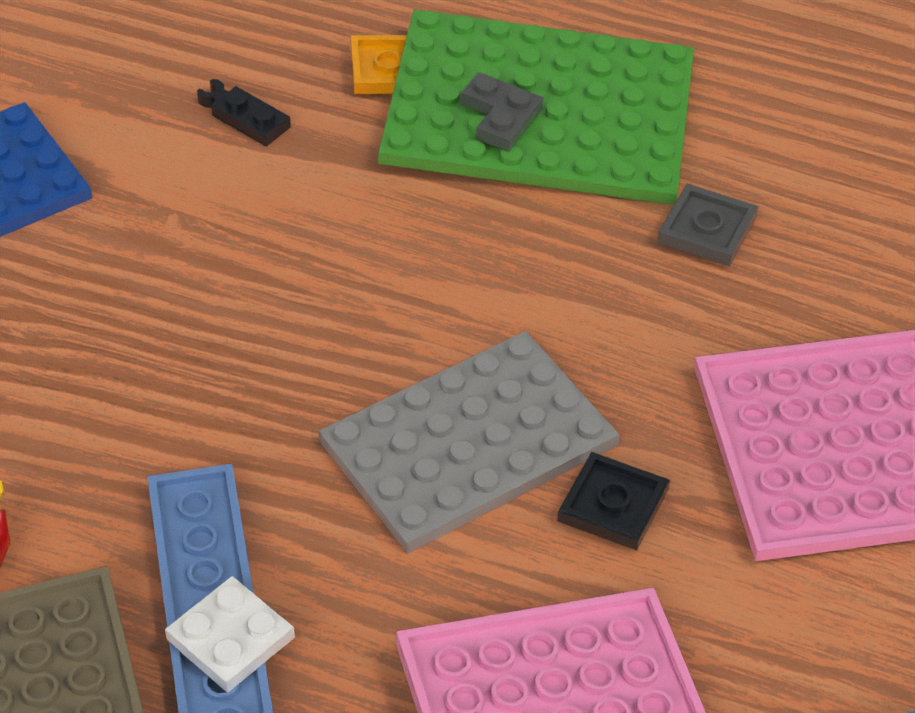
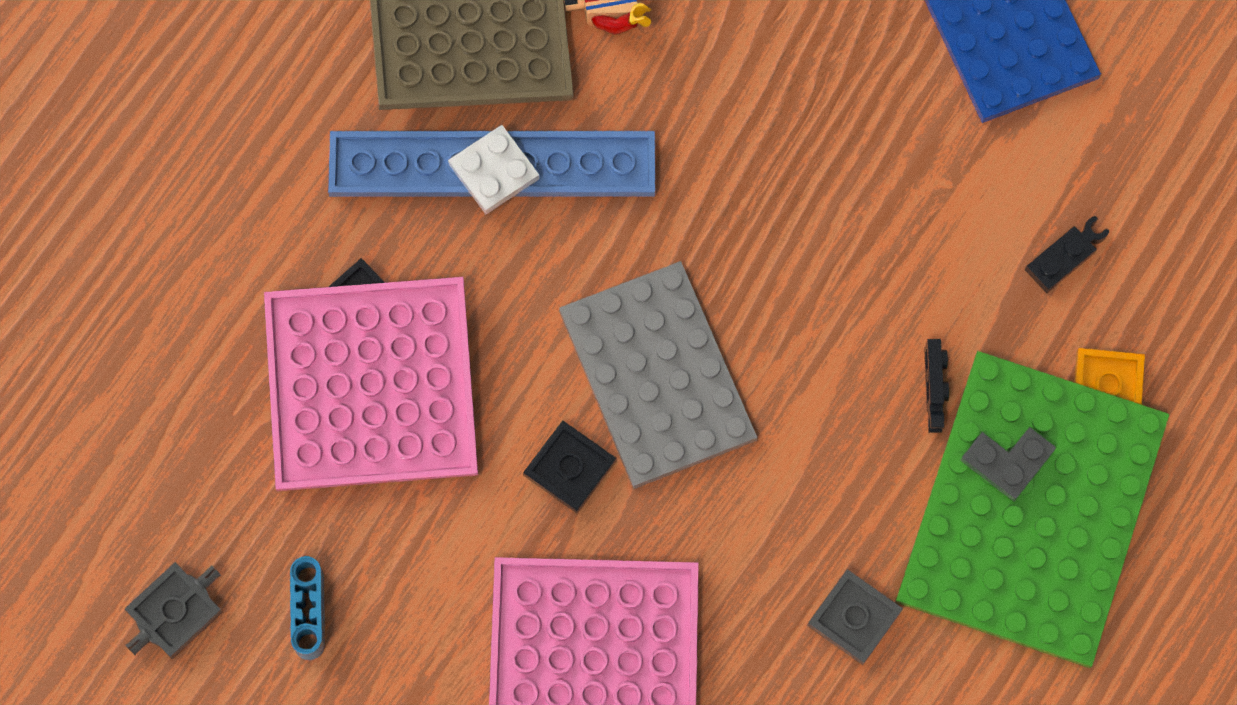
camera: 100 degrees right, 25 degrees up
(422, 189) = (936, 389): none -> black plate

